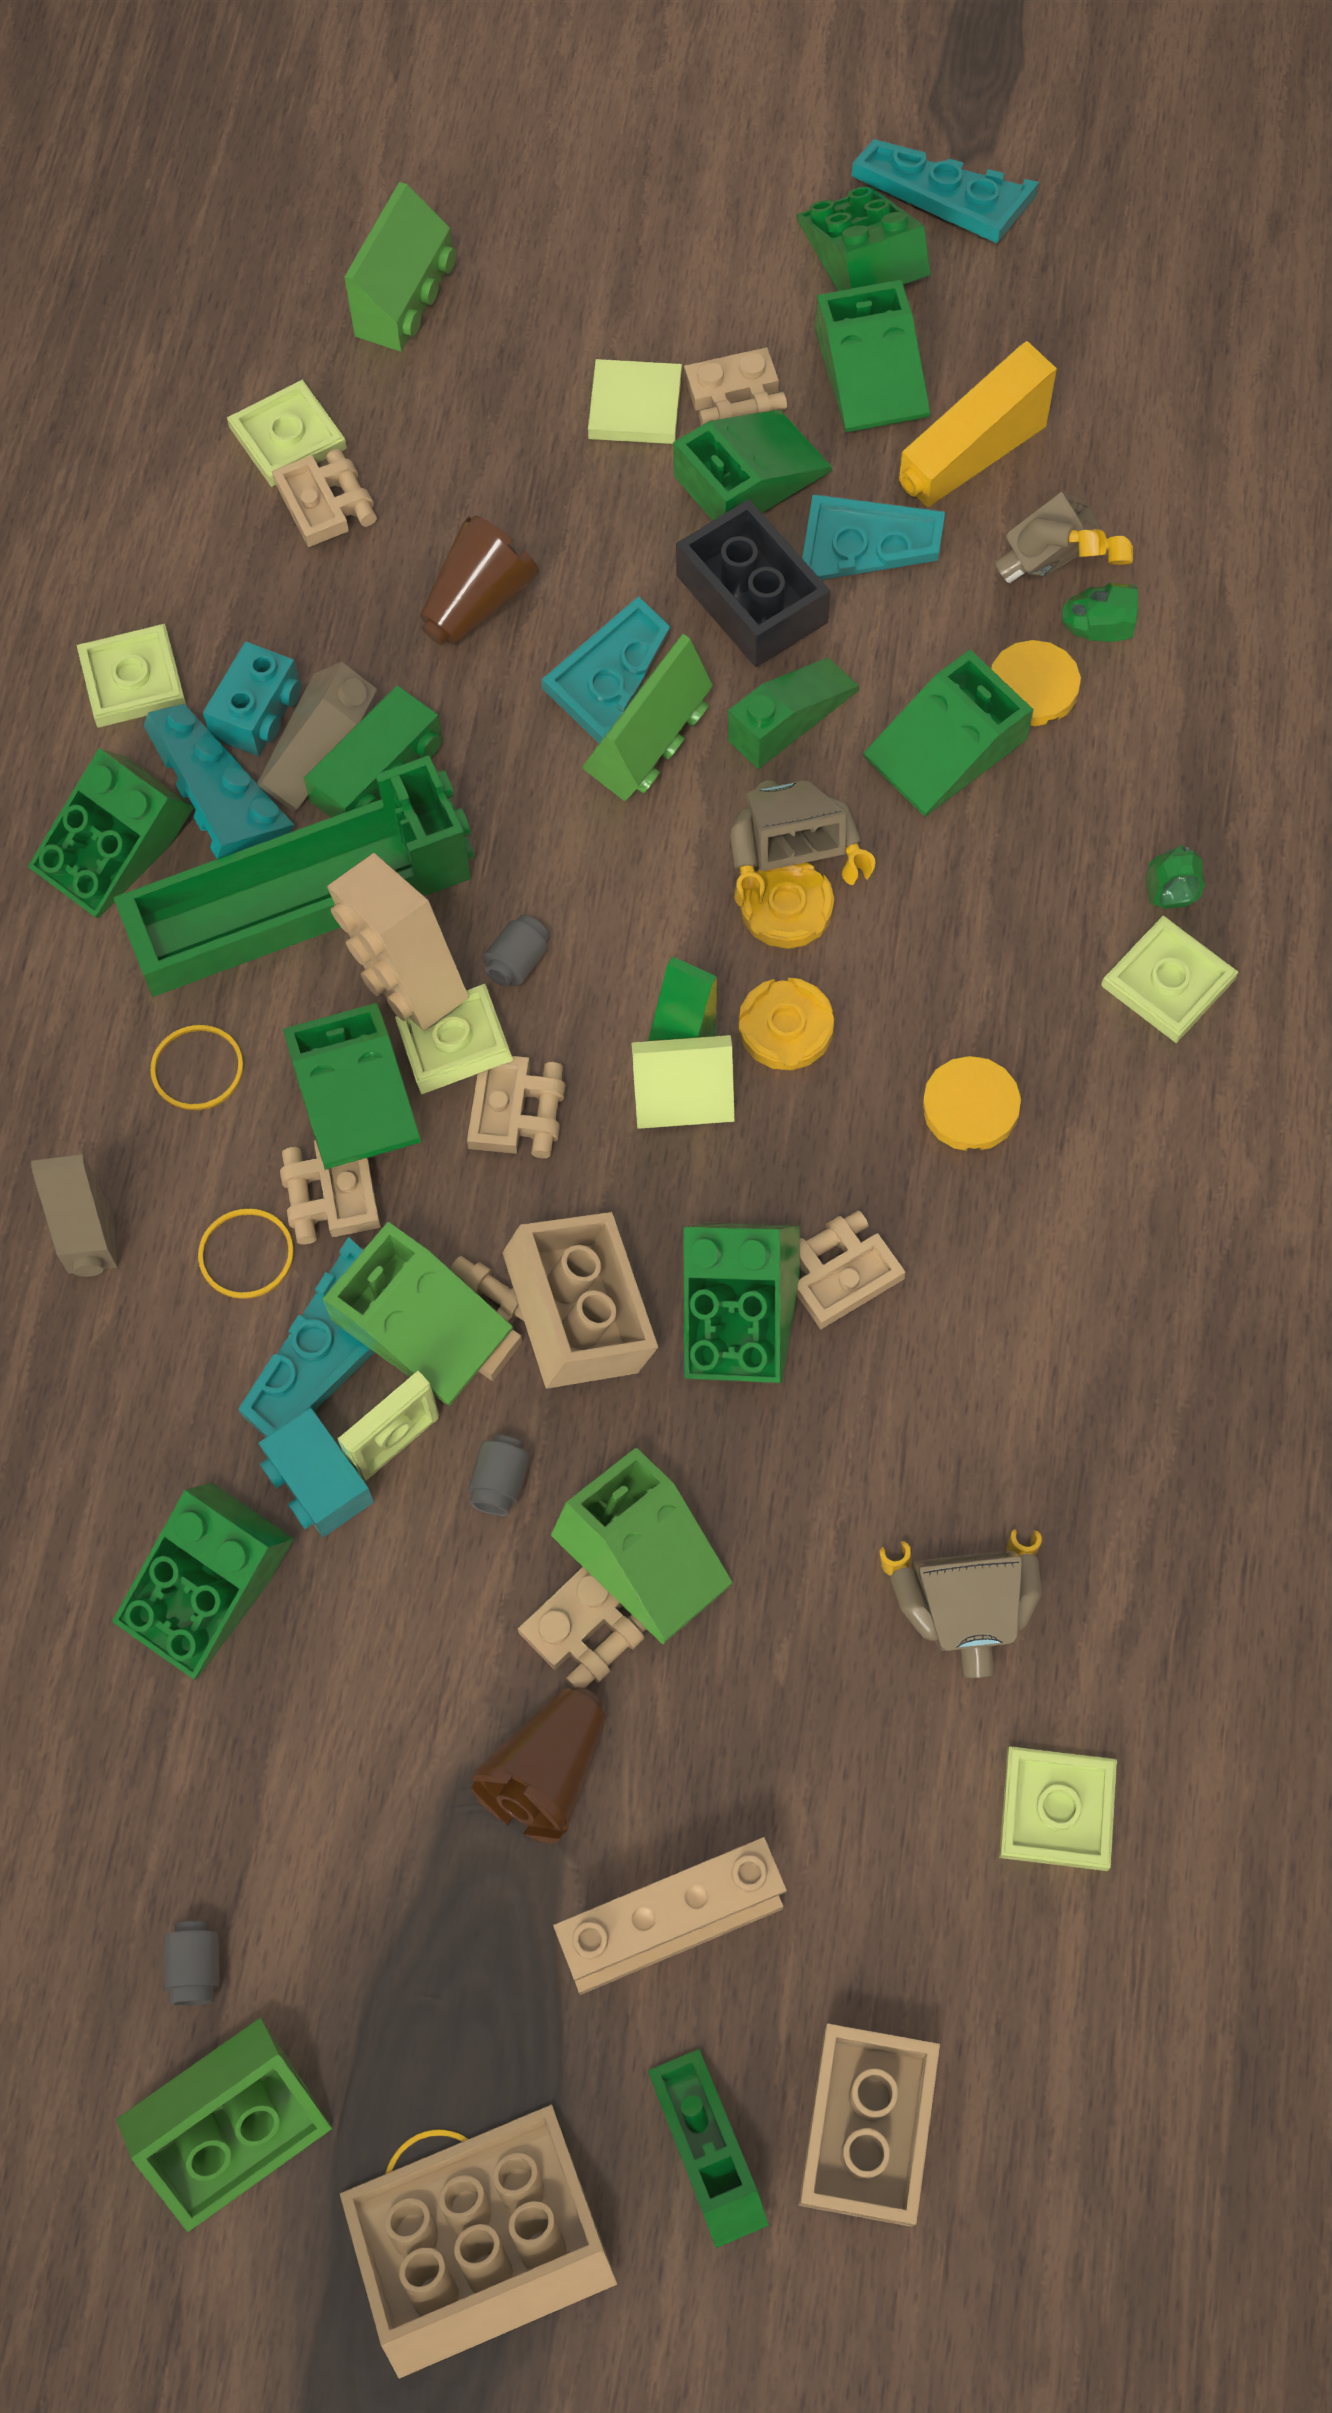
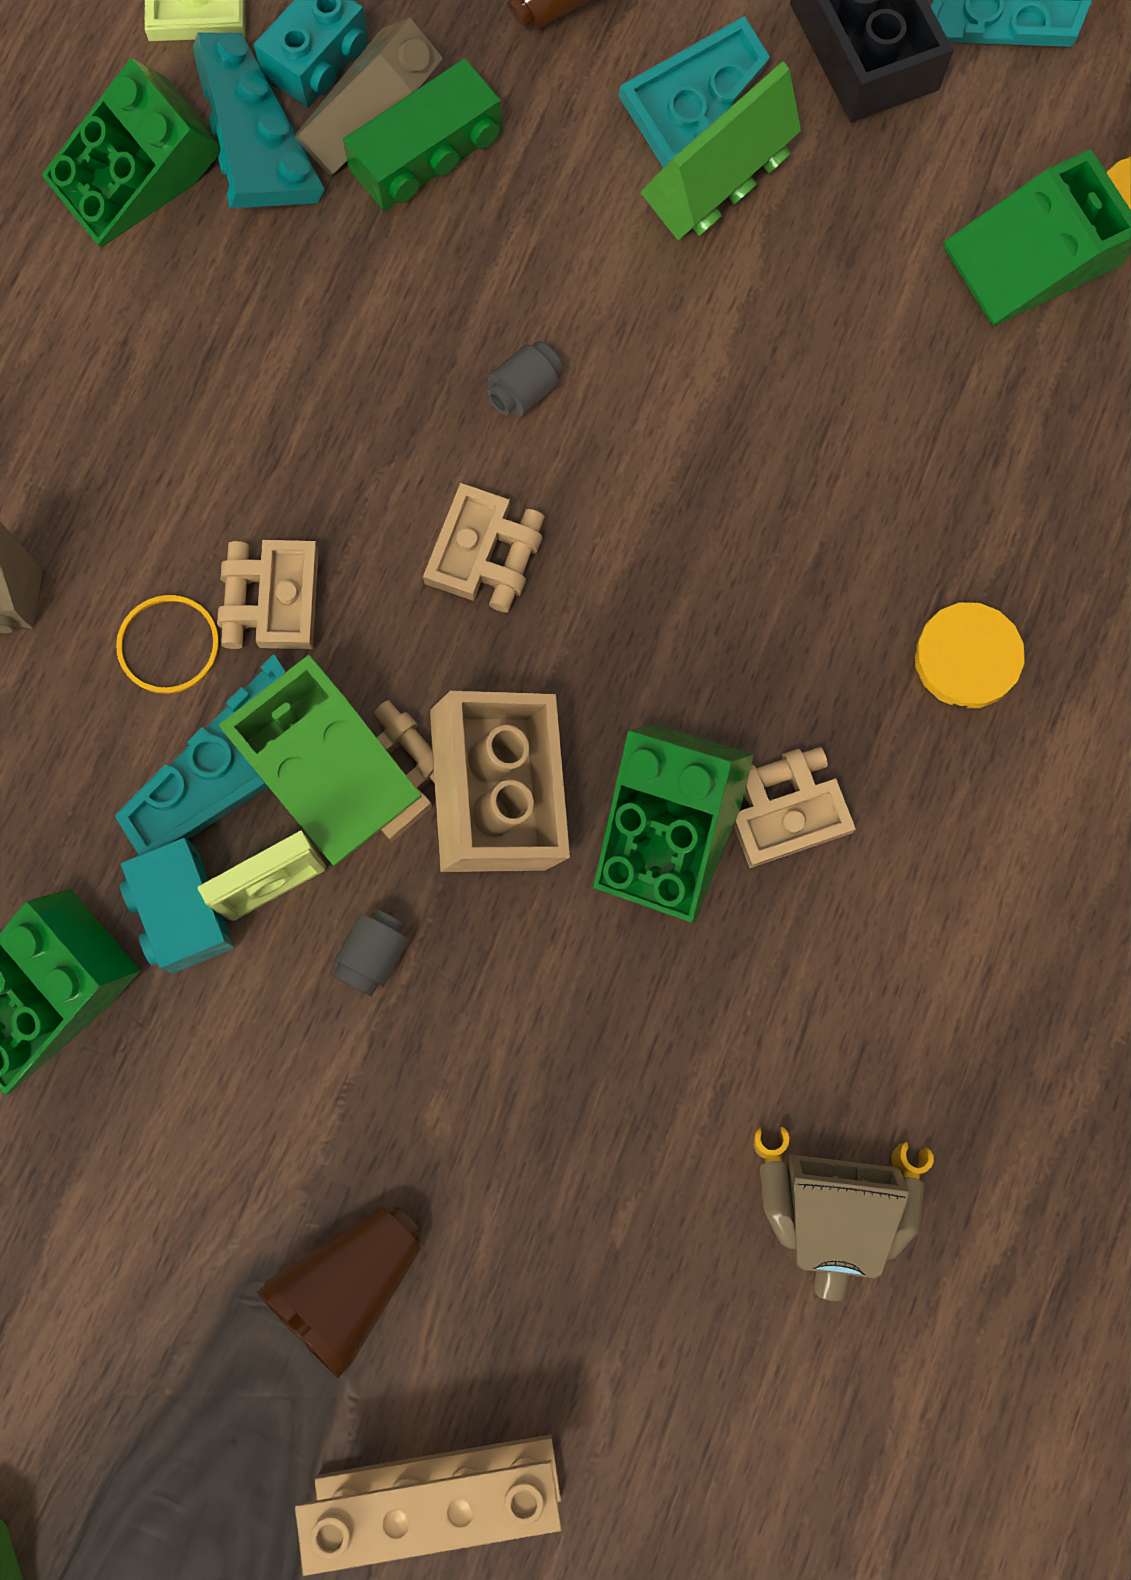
camera: 10 degrees right, 10 degrees up
(193, 1028) = (160, 388): yellow piece -> none
(279, 888) = (315, 253): green brick -> none
(351, 1086) = (311, 490): green slope -> none
(397, 942) = (394, 339): tan brick -> none
(457, 1044) = (435, 461): yellowish green tile -> none
(571, 1619) = (415, 1122): tan plate -> none
(643, 1545) = (503, 1073): bright green slope -> none
(683, 1081) = (667, 564): yellowish green tile -> none
(685, 1003) = (680, 500): green slope -> none
(786, 709) = (872, 175): green slope -> none
(786, 1023) = (791, 522): yellow tile -> none
(793, 827) = (849, 307): dark tan torso -> none
(793, 907) = (823, 389): yellow tile -> none
(1058, 1808) = (880, 1461): yellowish green tile -> none

